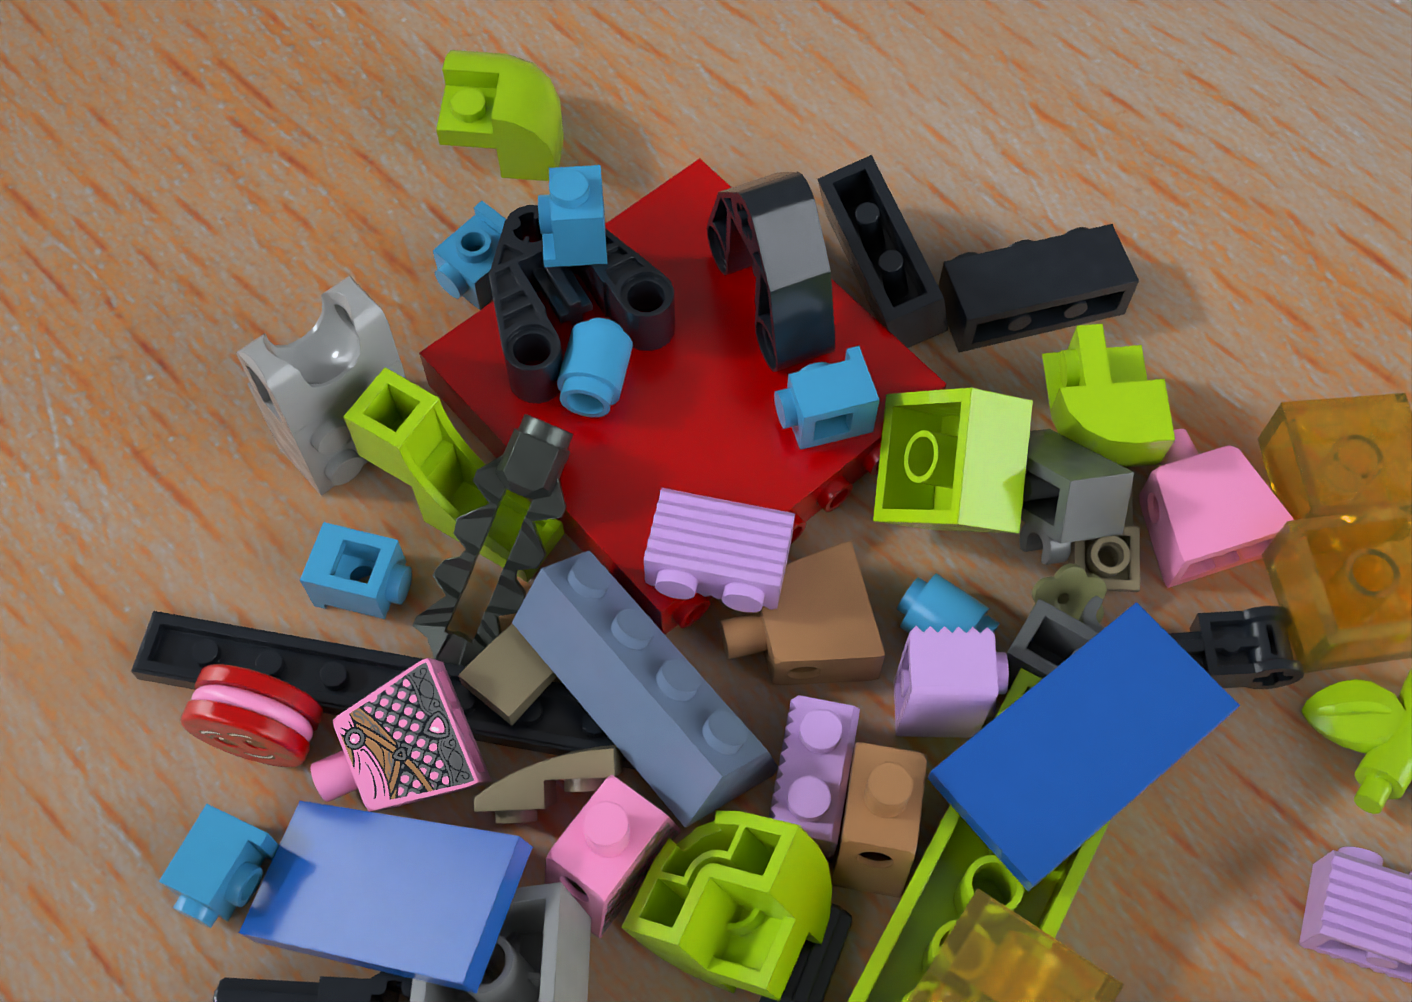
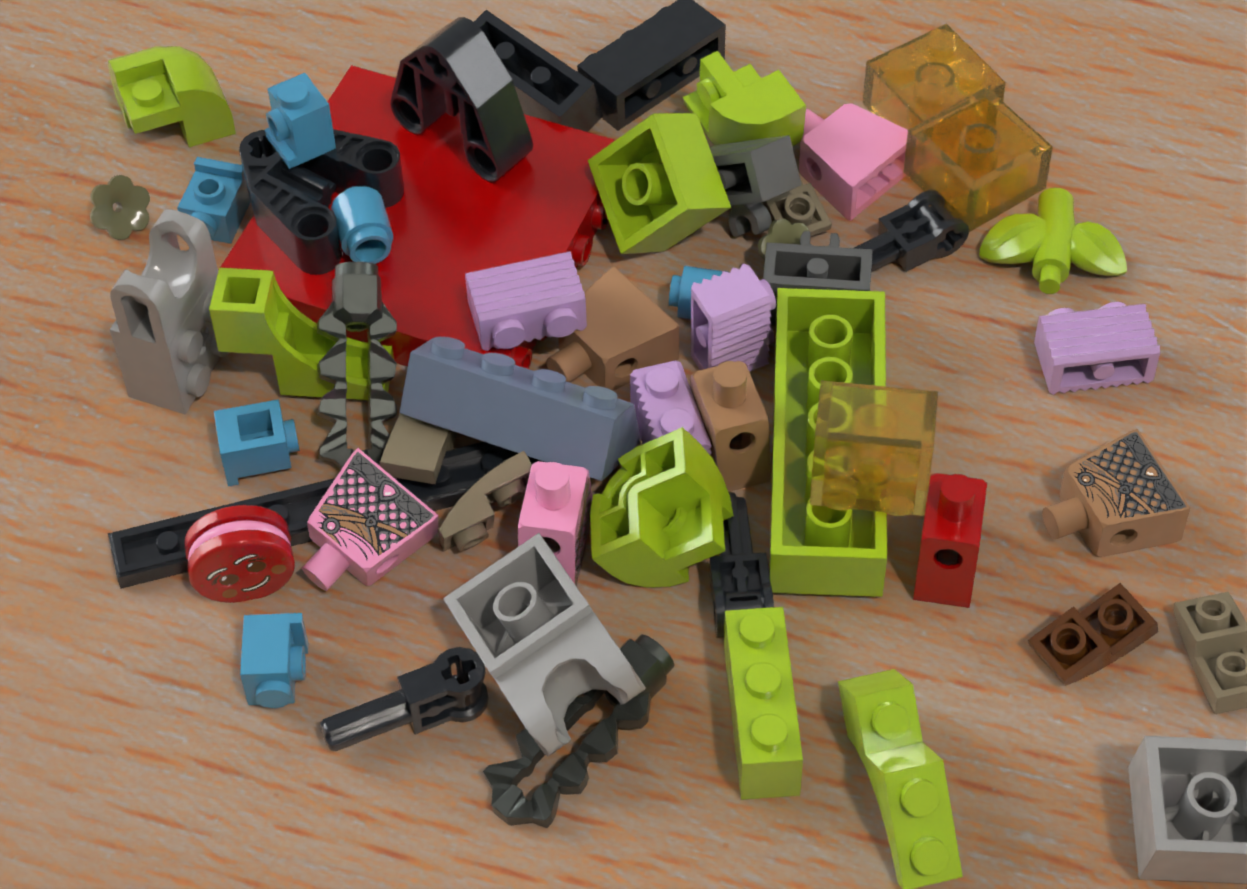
camera: 25 degrees left, 10 degrees down
(382, 235) = (130, 208): none -> olive plant
(388, 893) = (412, 606): tile -> none
(829, 401) = (550, 179): dark azure brick -> none
(1081, 745) = (842, 307): blue tile -> none

